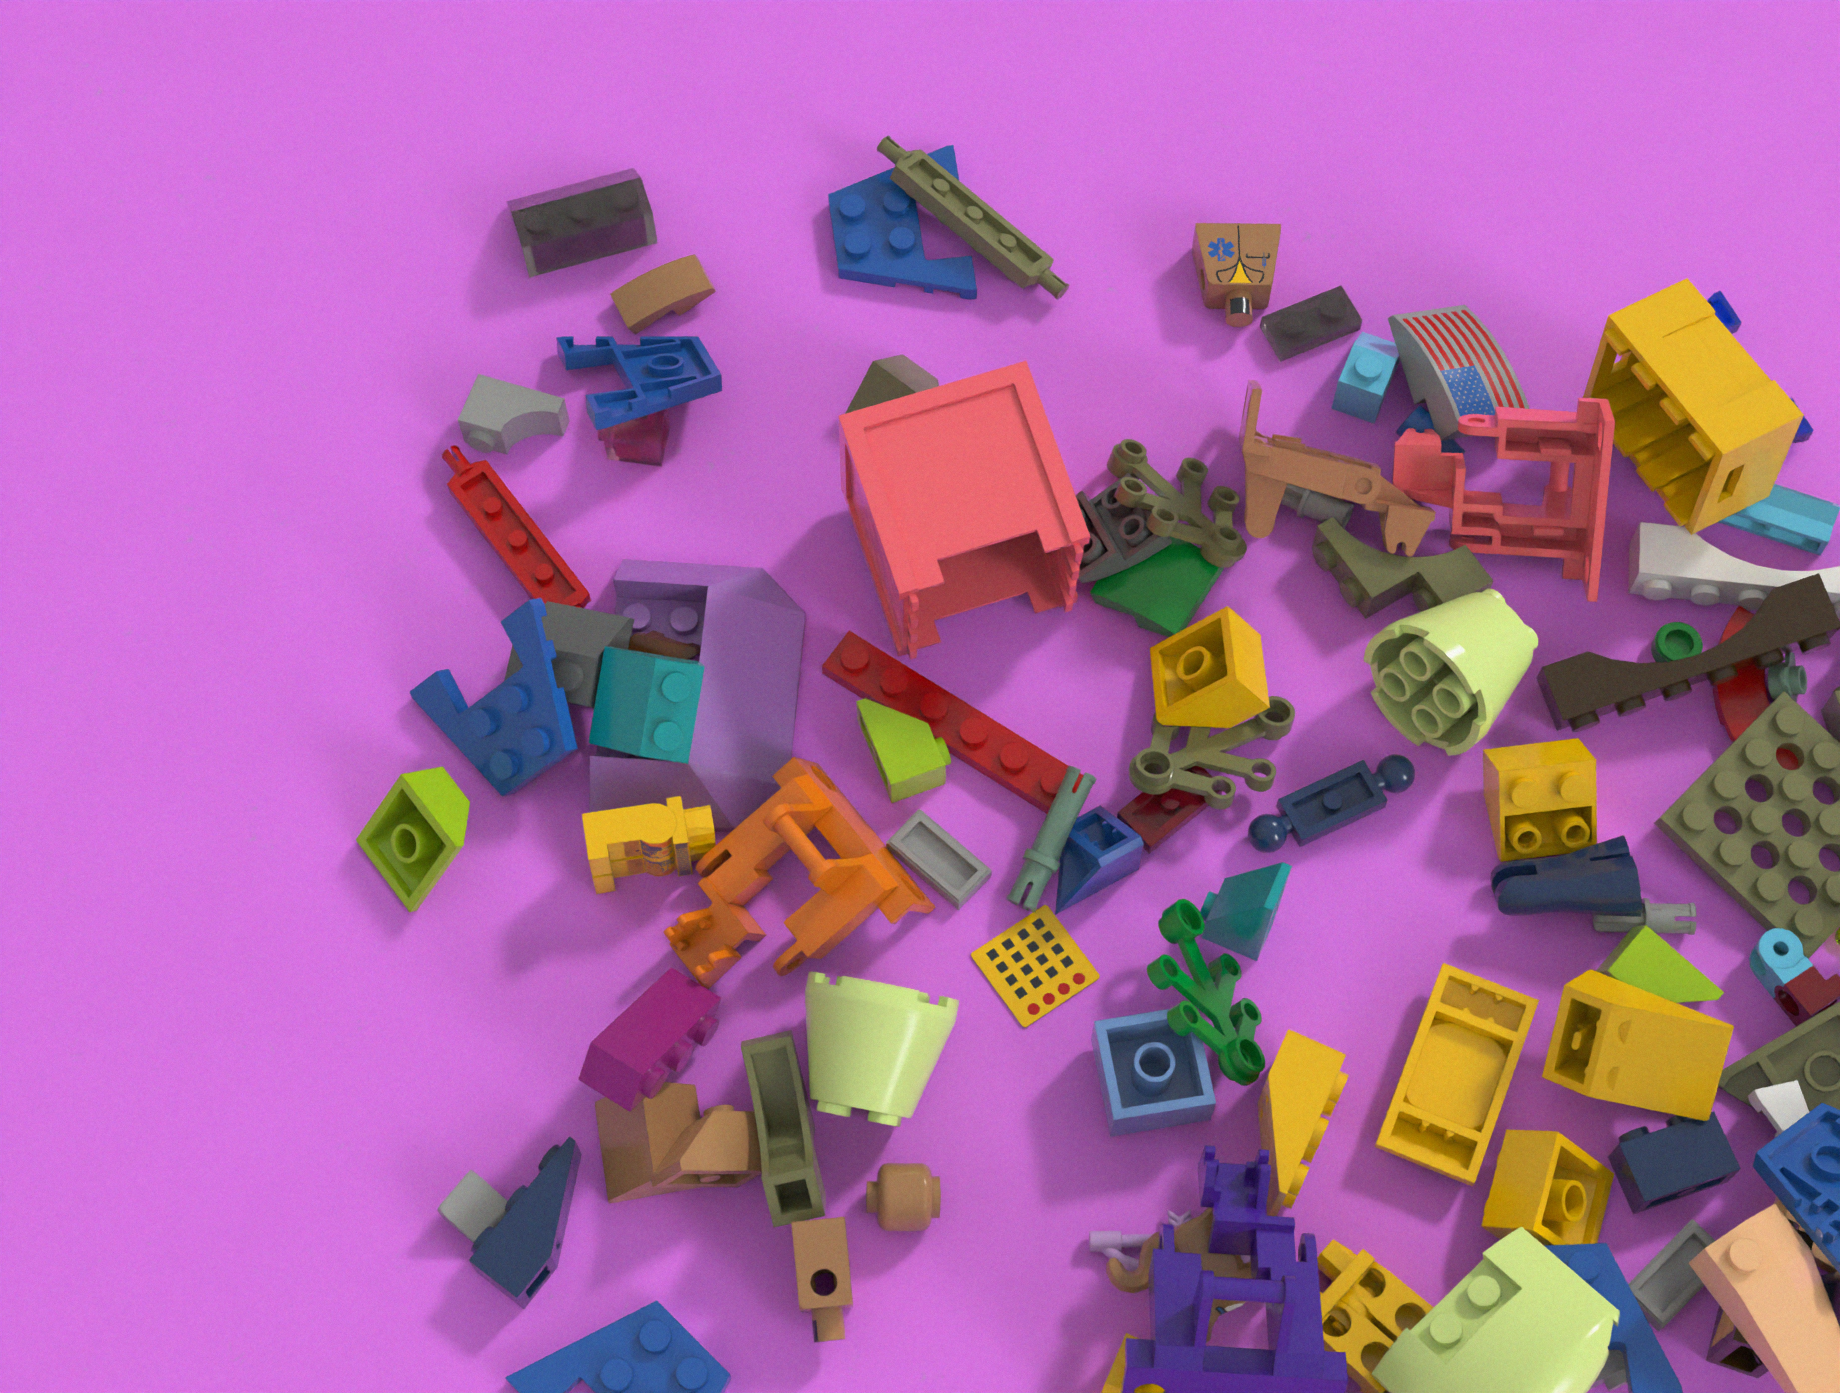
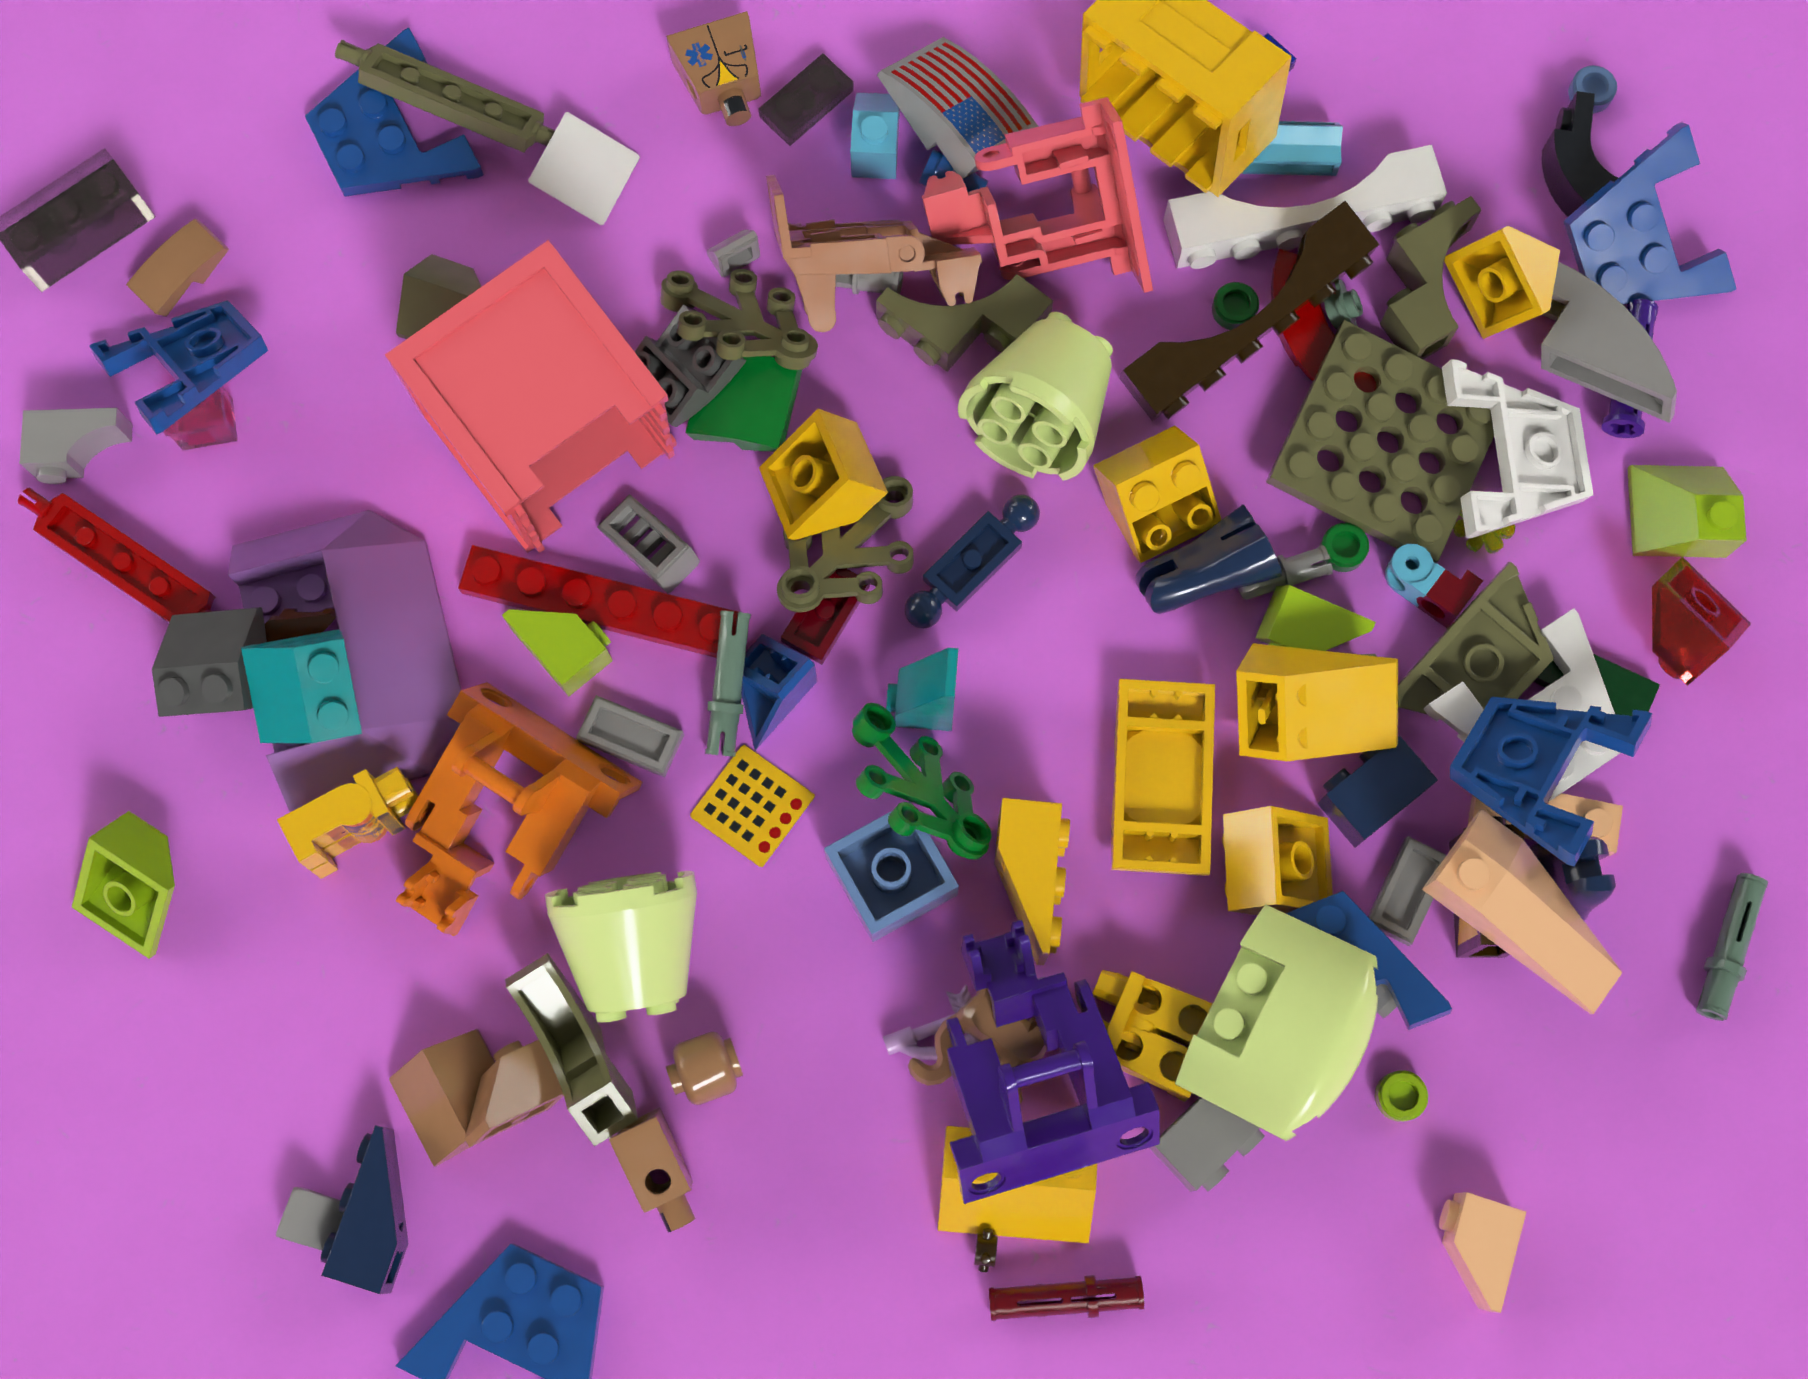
camera: 20 degrees left, 10 degrees up
(520, 723) = (185, 749): blue wing -> none
(651, 1040) = (419, 1009): magenta brick -> none
(1031, 711) = (669, 564): none -> light grey slope
(1075, 321) = (584, 168): none -> white sticker
(1194, 442) = (734, 252): none -> light grey slope
(1716, 914) = (1346, 546): none -> green tile

